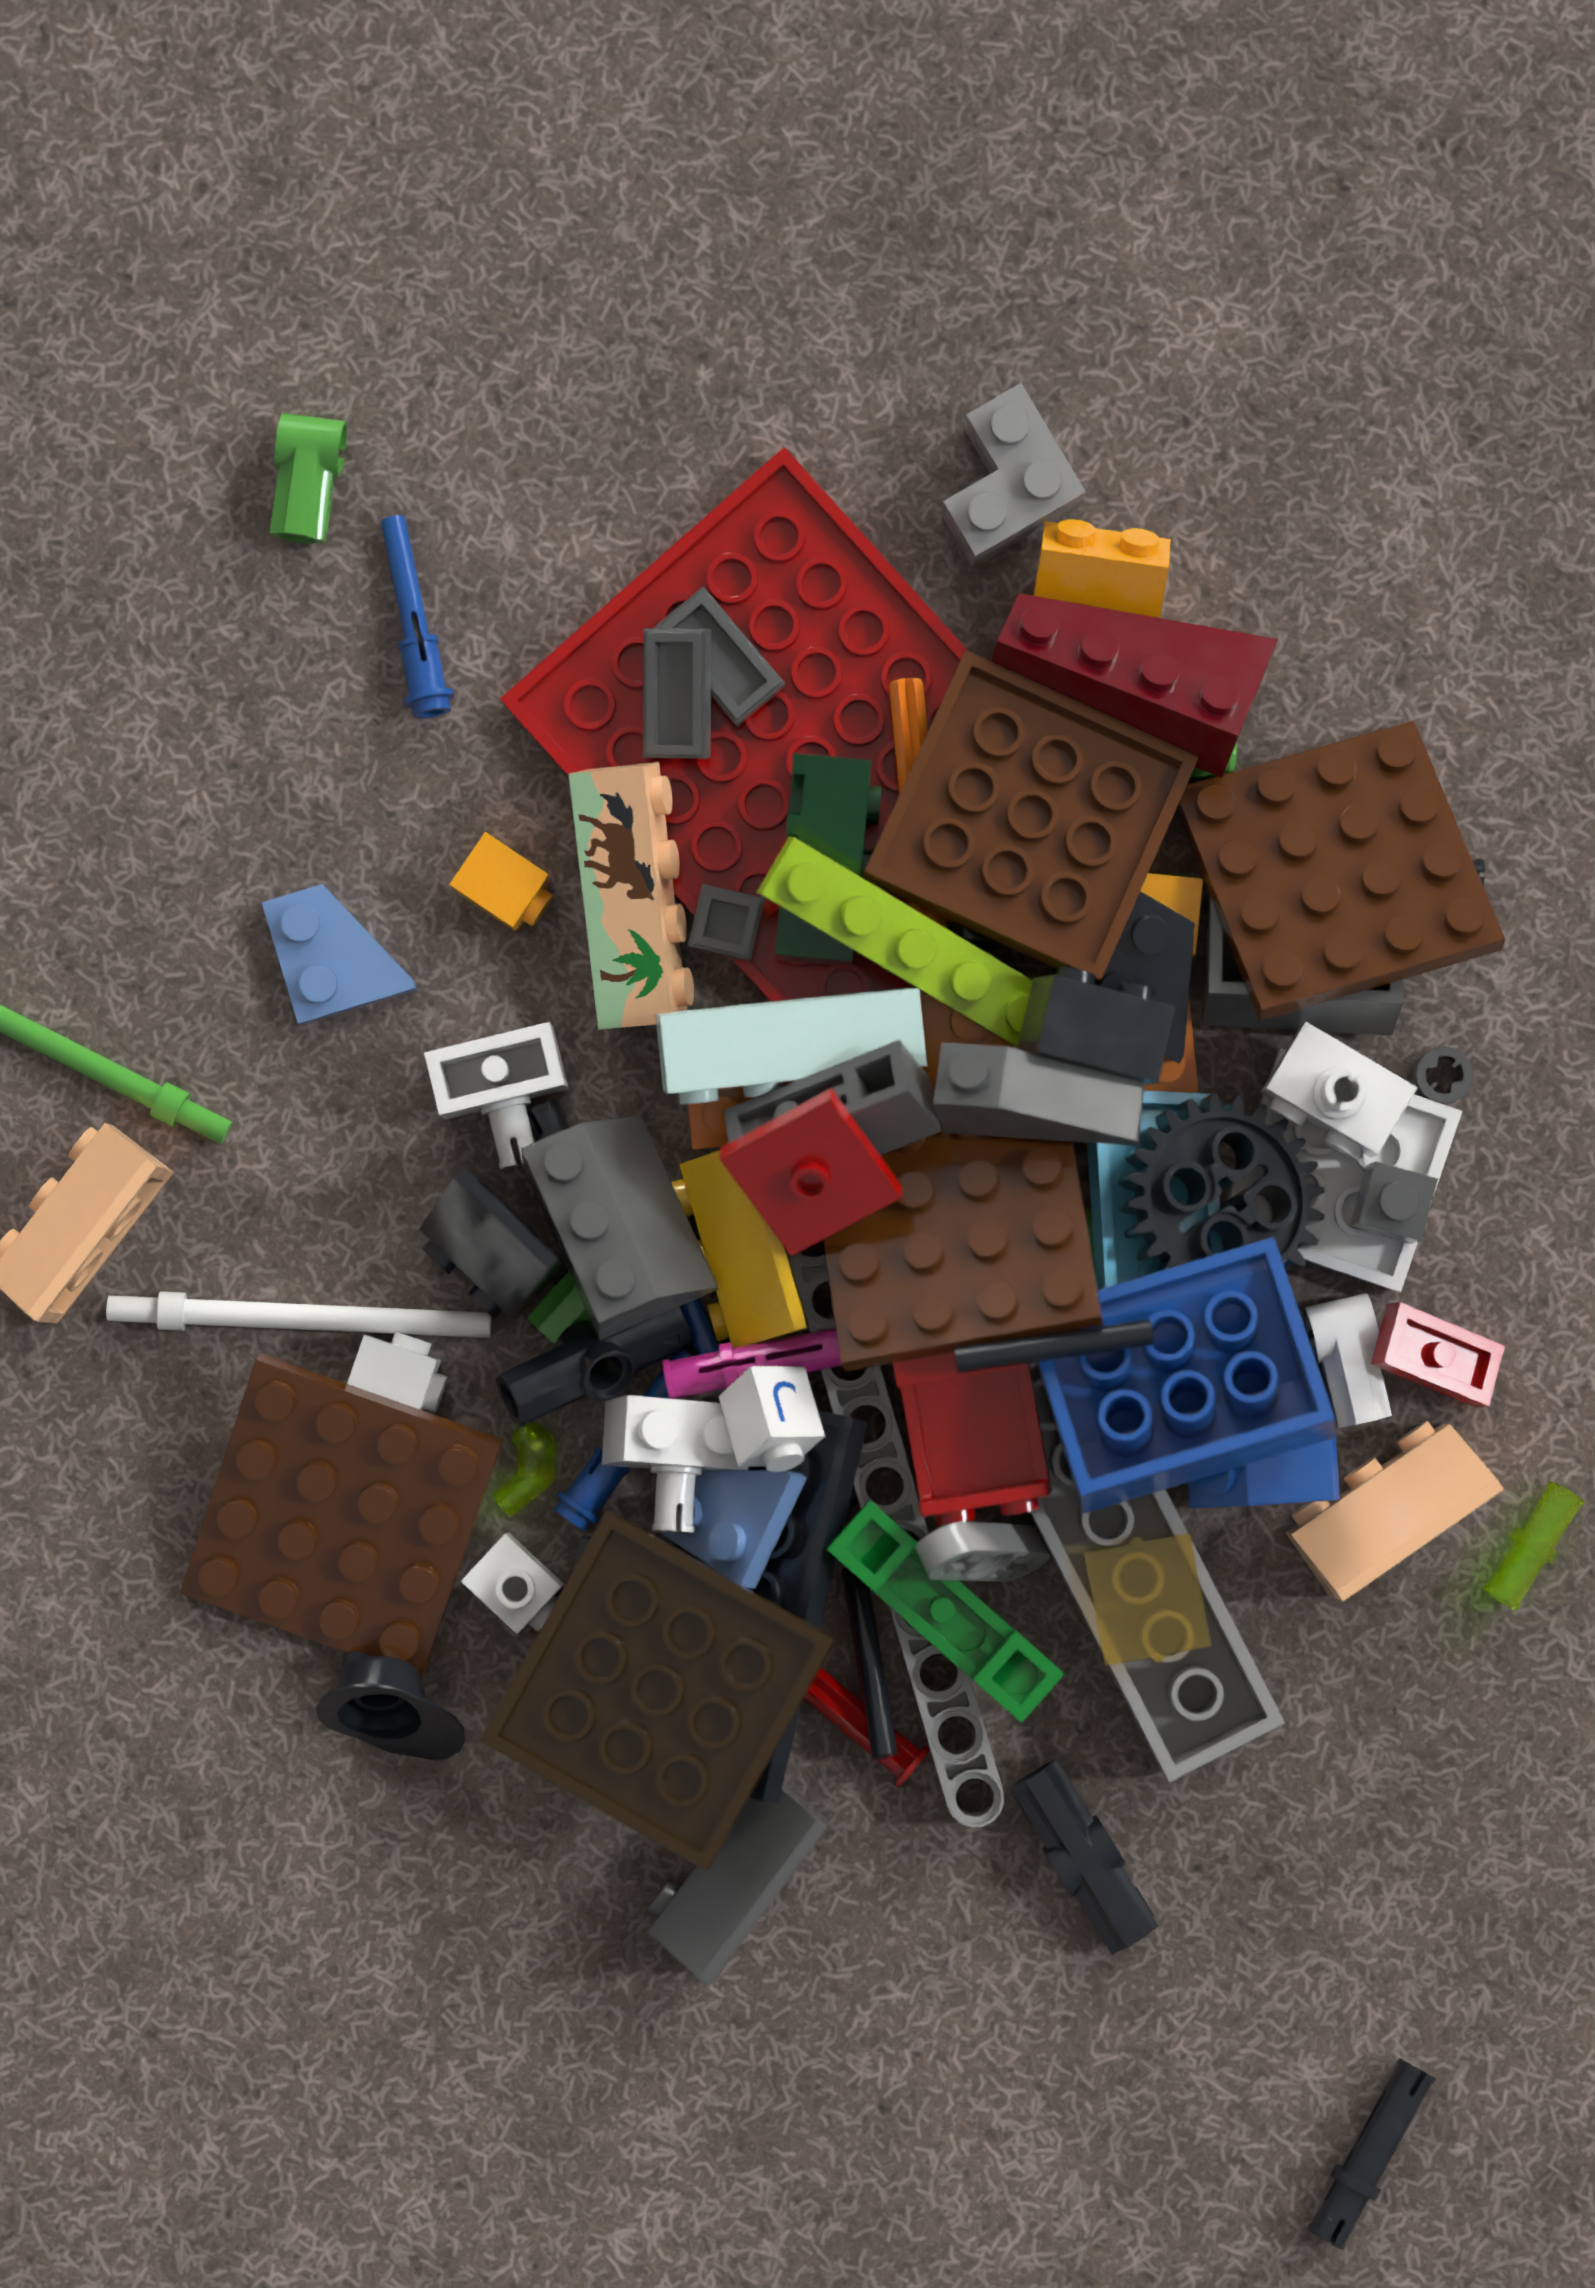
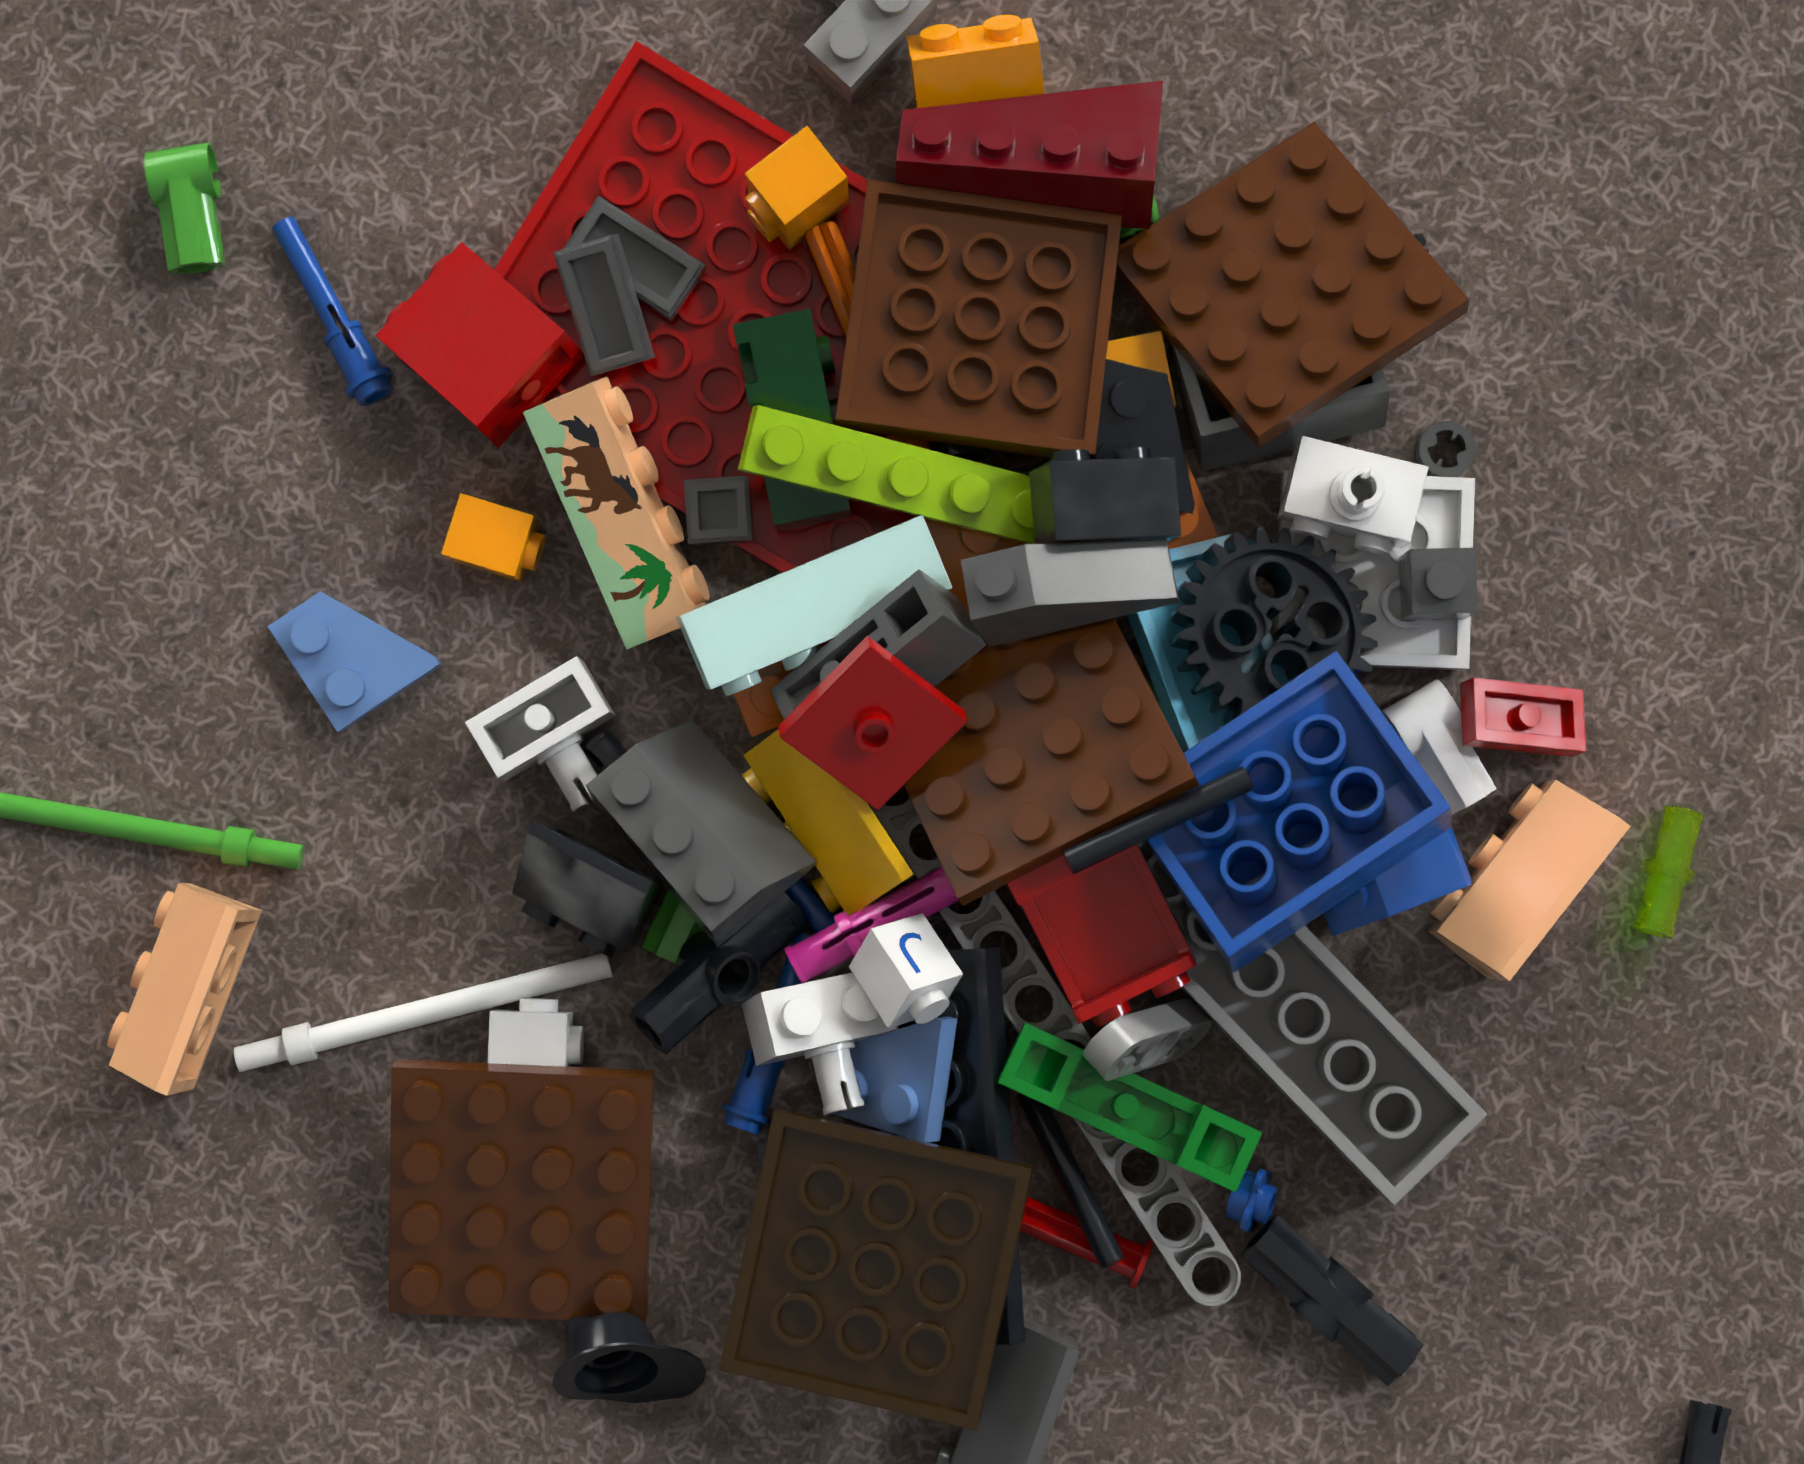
camera: 20 degrees left, 0 degrees up
(514, 1584) = (707, 1206): white brick -> none
(534, 1468) = (692, 1087): clear neon green arm -> none
(546, 693) = (479, 343): none -> red panel
(892, 639) = (795, 189): none -> light orange brick
(1037, 1737) = (1252, 1200): none -> blue plate
(1147, 1599) = (1319, 1036): clear yellow piece -> none

